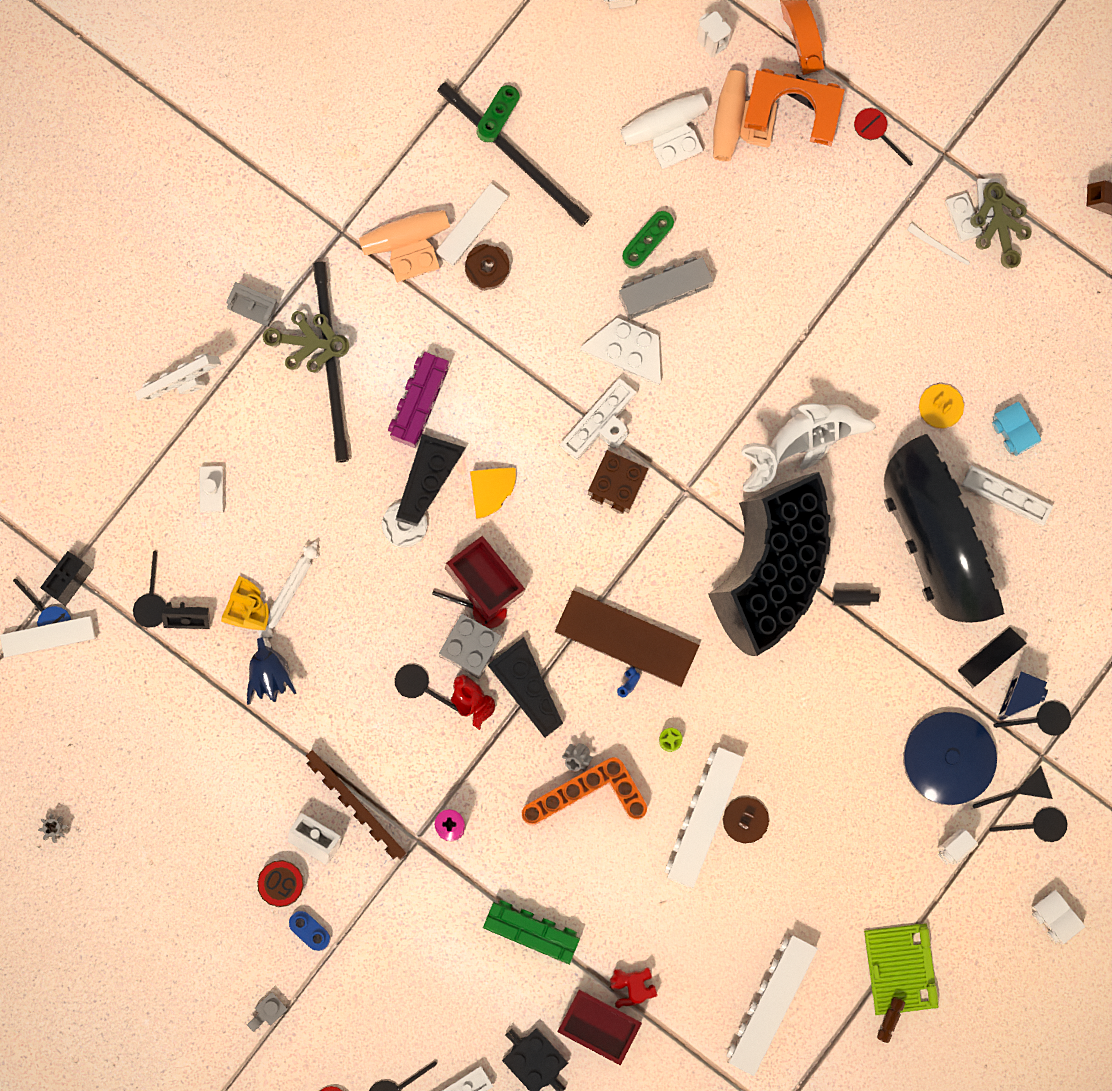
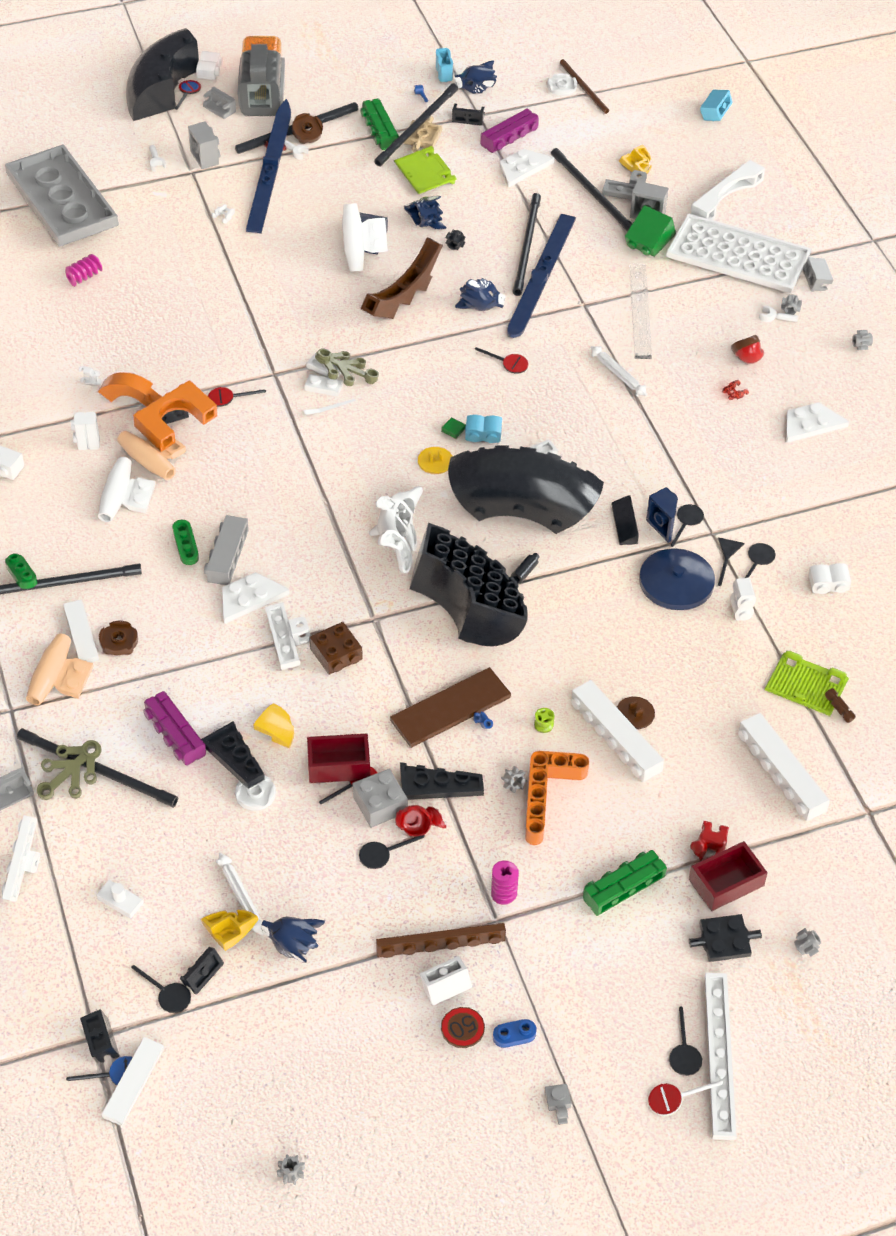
camera: 55 degrees left, 30 degrees down
(998, 395) = (453, 427): none -> green tile

